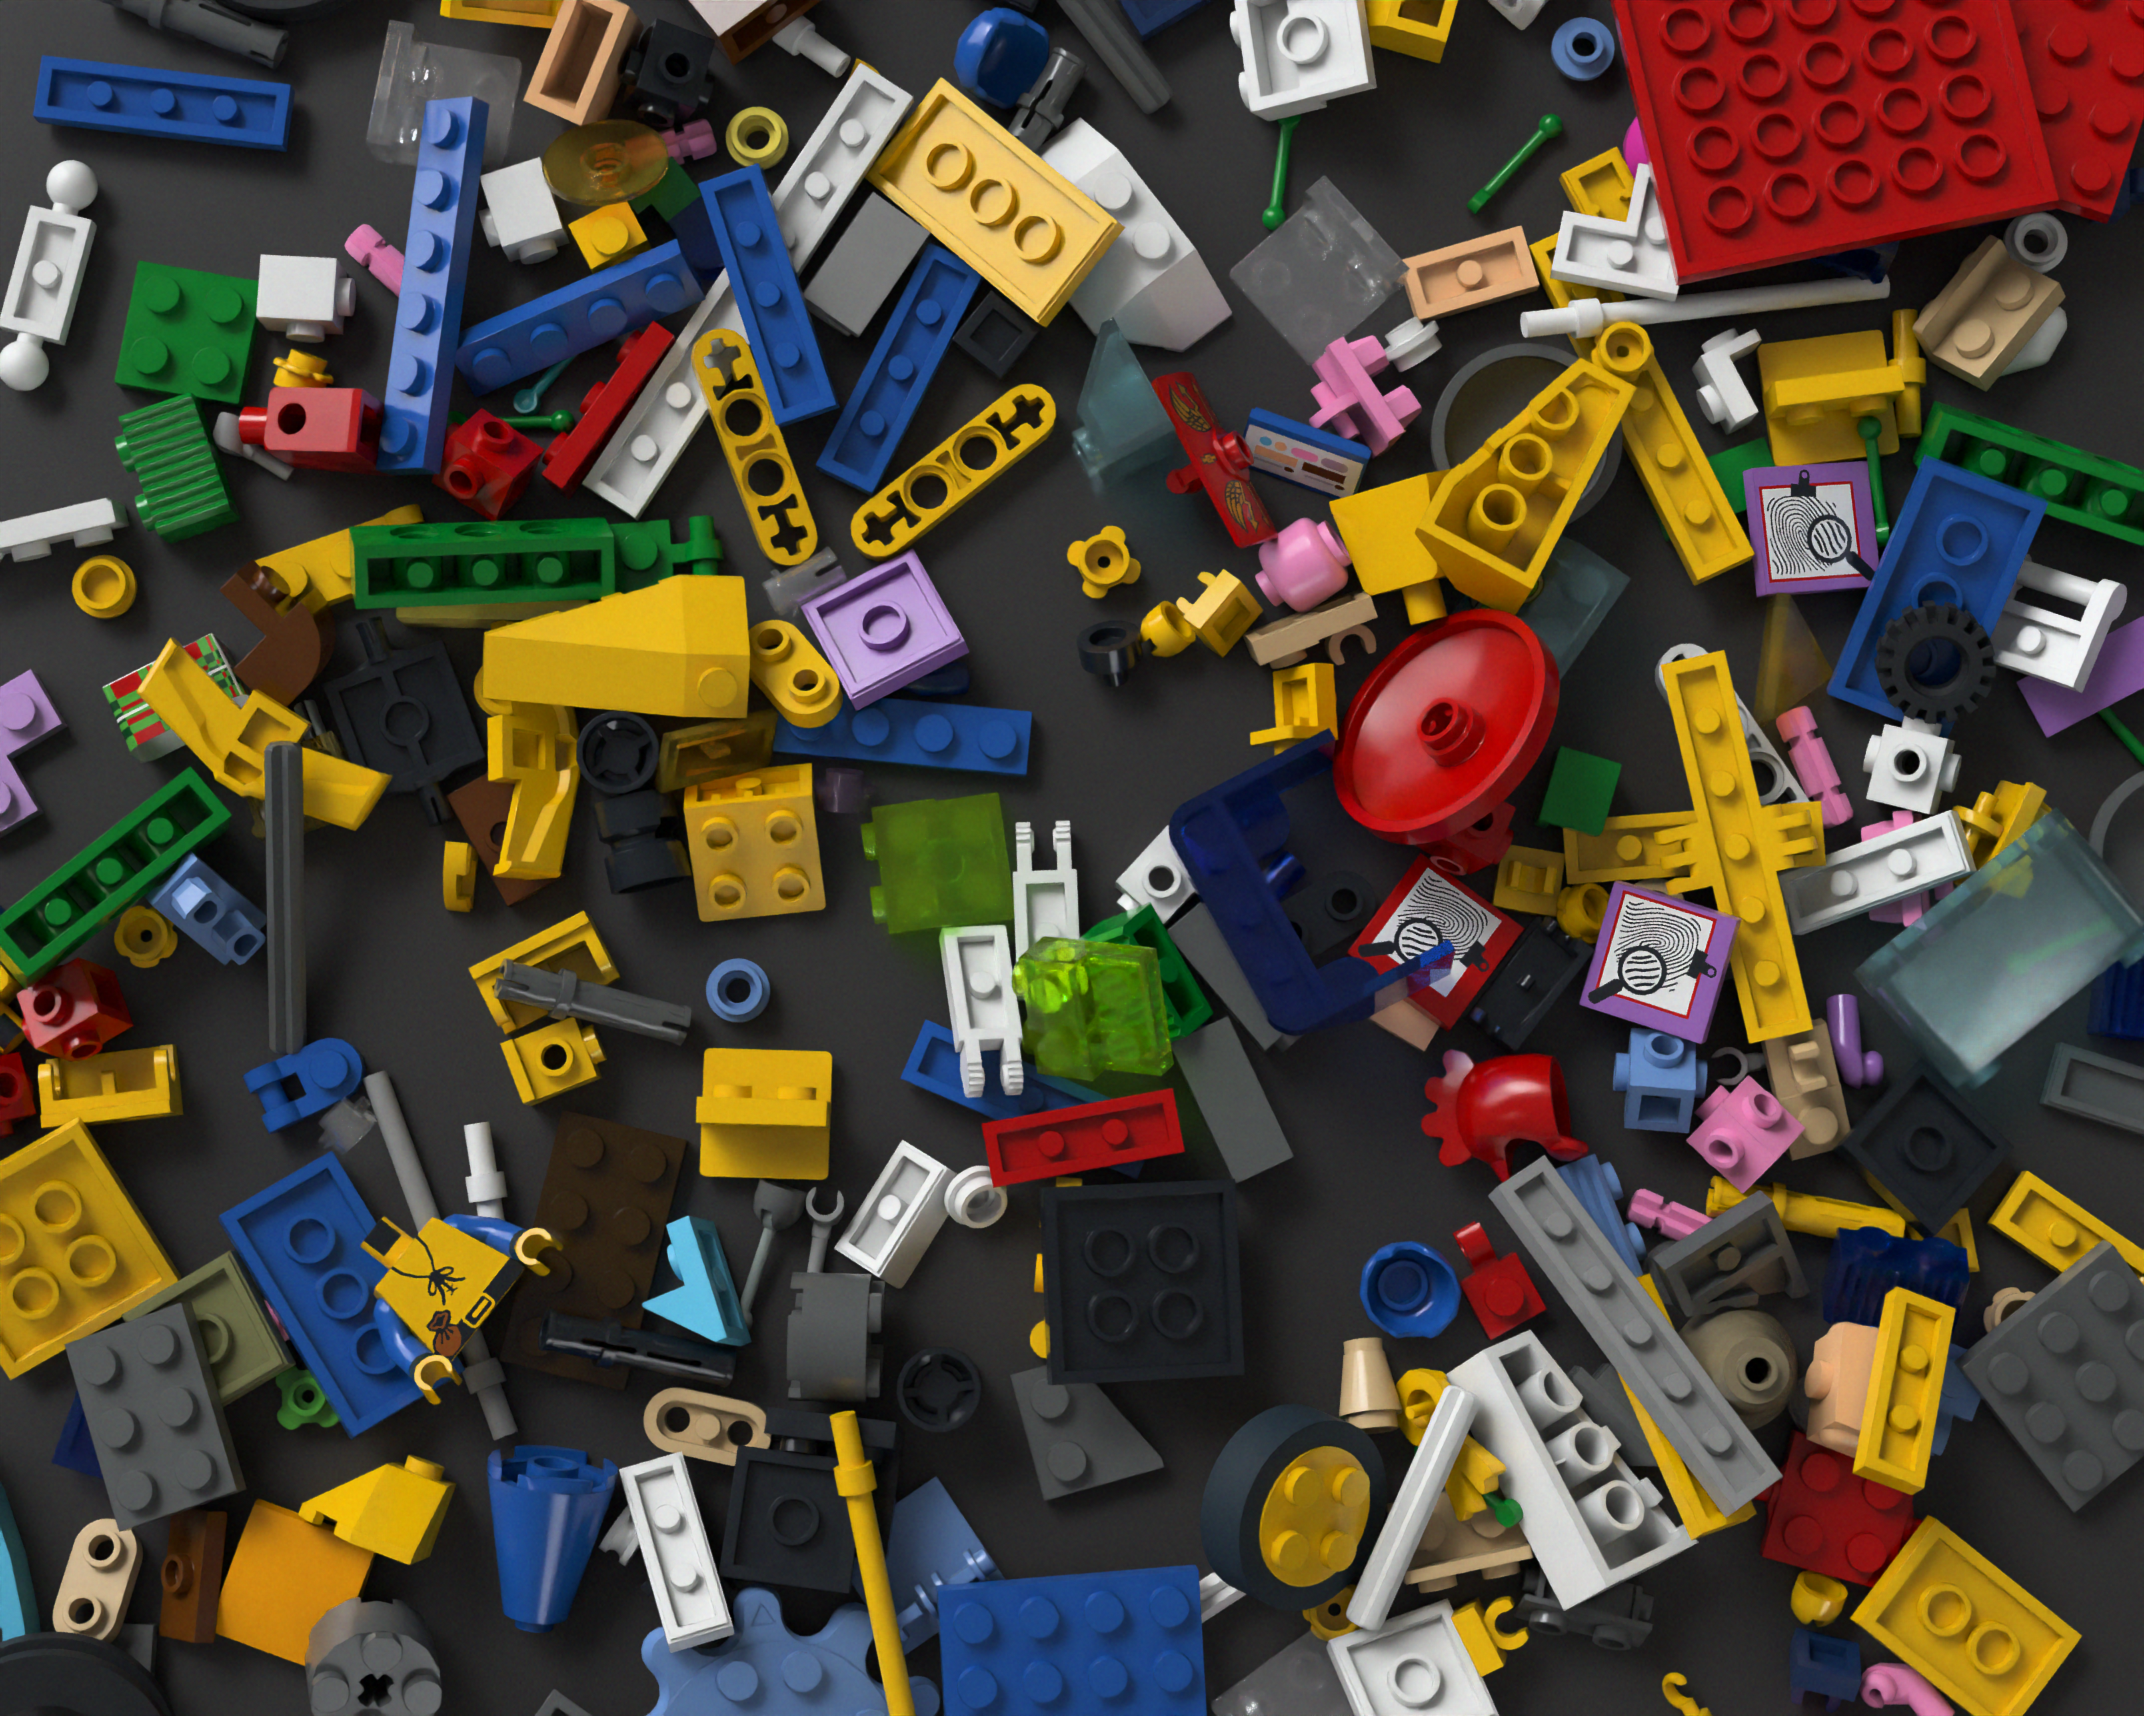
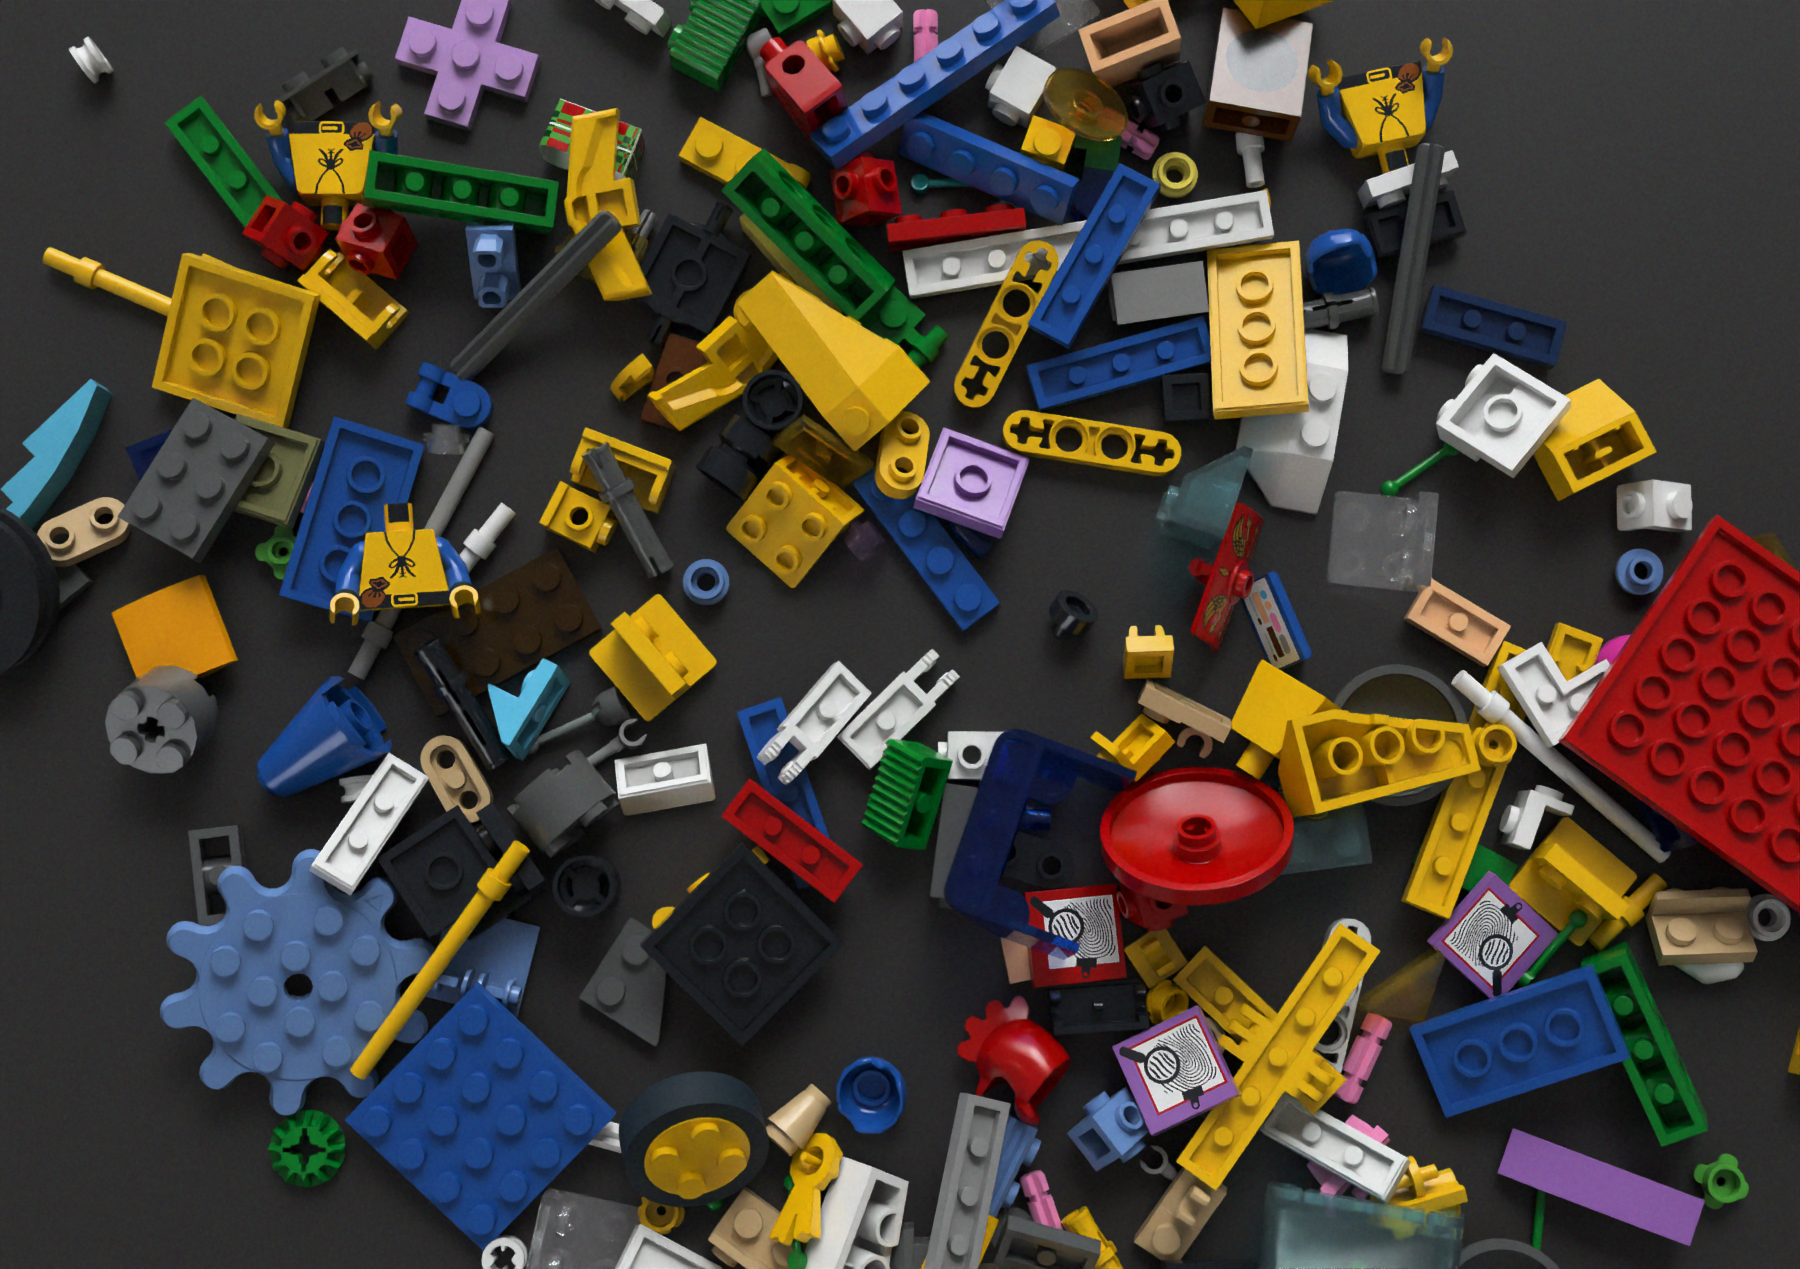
camera: 45 degrees right, 0 degrees up
(104, 587) = (617, 53): yellow plate -> none
(129, 941) = (440, 239): yellow plate -> none
(193, 1575) = (132, 578): reddish brown plate -> none
(297, 634) = (682, 173): reddish brown brick -> none
(388, 1509) = (256, 650): yellow slope -> none
(560, 421) = (926, 210): green hinge -> none
(799, 584) = (955, 416): clear pin -> none
(939, 864) = (872, 628): clear neon green plate -> none
(973, 1199) = (706, 810): white plate -> none
(1093, 1008) = (866, 781): clear neon green plate -> none
(1106, 544) = (1111, 555): yellow plate -> none
(1166, 630) = (1111, 635): yellow hinge -> none
(1230, 1100) = (886, 902): dark grey brick -> none
(1303, 565) = (1214, 677): bright pink head -> none
(1354, 402) = (1329, 622): bright pink hips -> none
(1412, 343) = (1390, 625): white plate -> none
(1413, 1508) = (752, 1205): white axle -> none
(1497, 1288) = (917, 1141): red plate -> none
(1549, 127) = (1579, 592): green hinge -> none
(1577, 792) = (1228, 939): green panel -> none
(1743, 1132) = (1124, 1202): bright pink brick -> none
(1844, 1033) = (1231, 1207): medium lavender arm -> none
(1889, 778) = (1394, 1106): white brick -> none
(1943, 699) = (1477, 1102): black tyre -> none
(2049, 643) = (1552, 1130): white plate -> none

